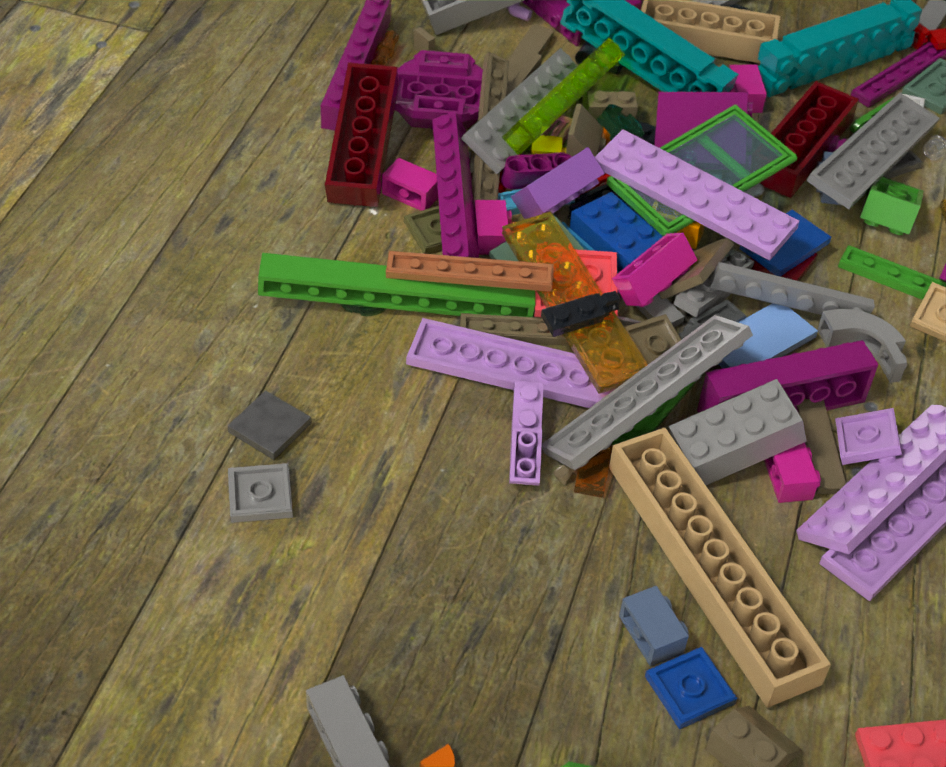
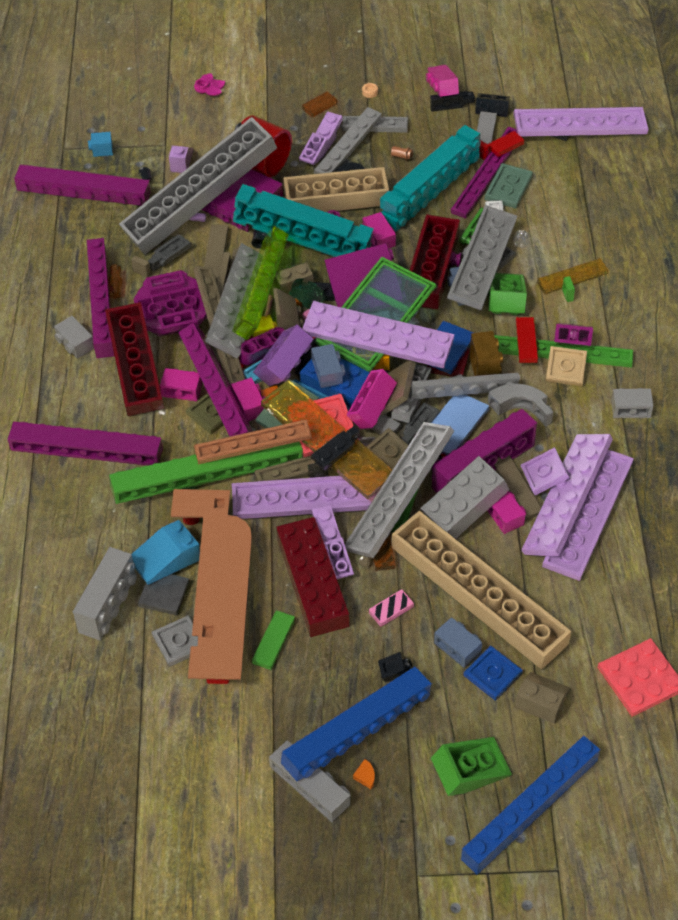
camera: 15 degrees left, 5 degrees up
(186, 397) = (105, 593): none -> light grey brick
(255, 214) = (85, 443): none -> magenta brick
(294, 374) = (166, 552): none -> dark azure slope
(302, 94) = (74, 337): none -> light grey brick
(342, 438) = (220, 584): none -> nougat piece
(389, 535) = (273, 640): none -> bright green tile
(451, 687) = (355, 724): none -> blue brick
(466, 38) = (169, 252): none -> dark grey hinge
(480, 470) = (312, 577): none -> dark red brick
(543, 337) = (315, 470): none -> clear smoke plate
(548, 627) = (394, 666): none -> black bracket
(575, 547) = (391, 608): none -> bright pink tile
(611, 210) = (327, 365): none -> sand blue brick
(811, 13) = (402, 152): none -> nougat pin
(835, 261) = (484, 354): none -> pearl gold brick
(900, 266) = (526, 340): none -> red tile

